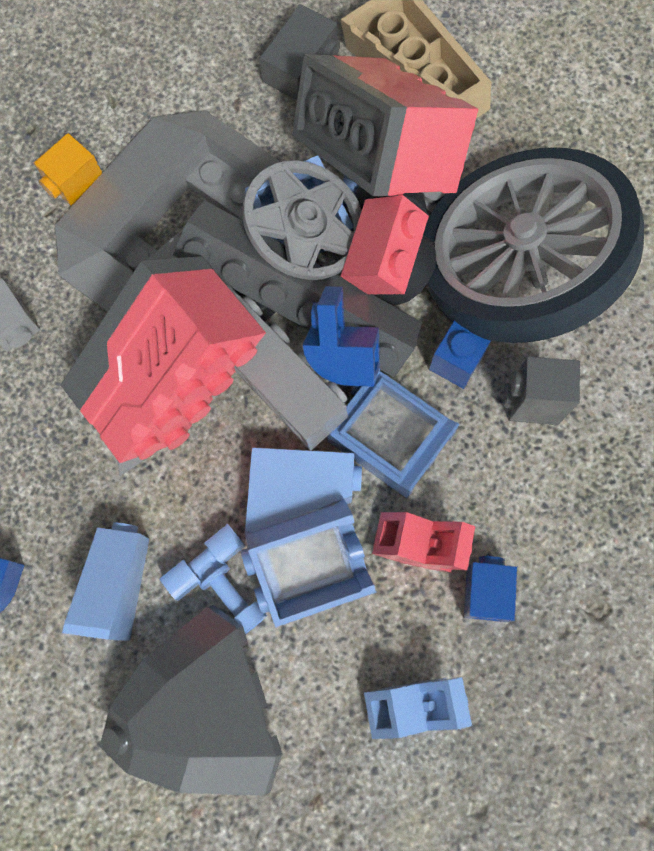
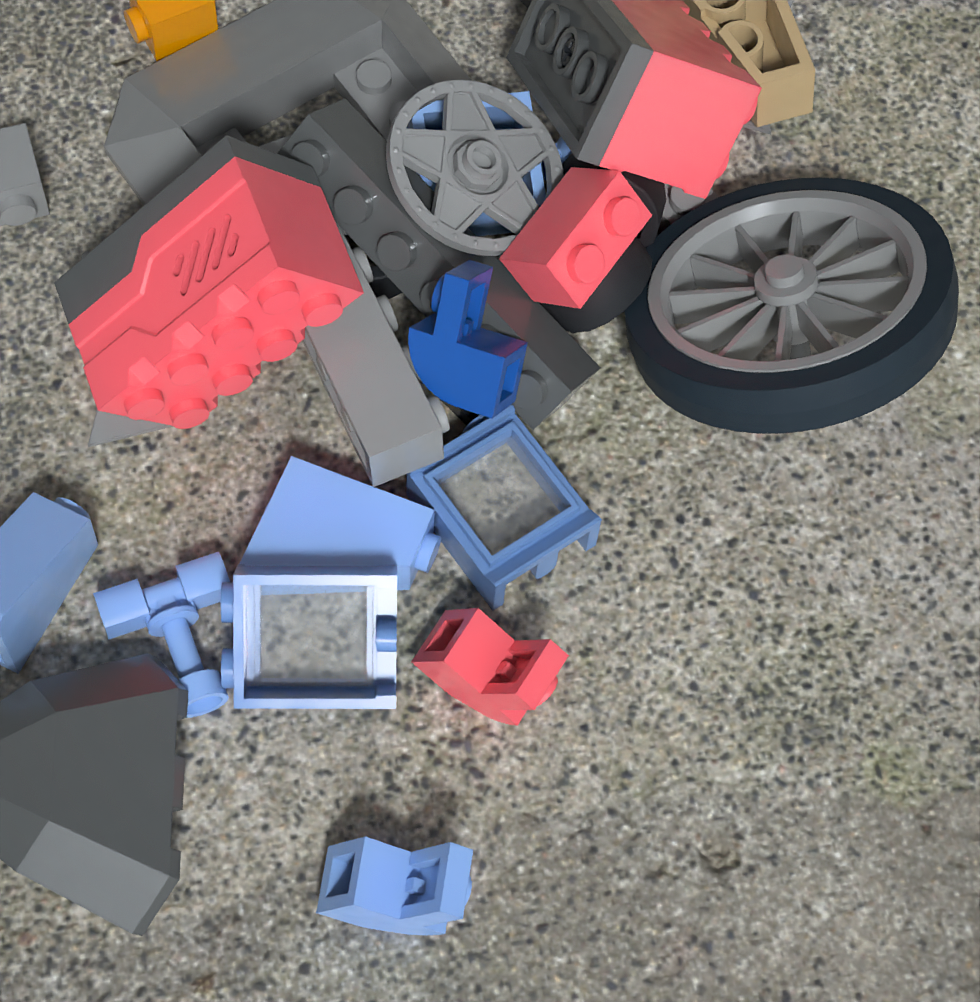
camera: 10 degrees right, 10 degrees down
(458, 355) = (638, 431): blue brick -> none
(490, 590) = (563, 767): blue brick -> none
(543, 390) = (736, 511): dark grey brick -> none

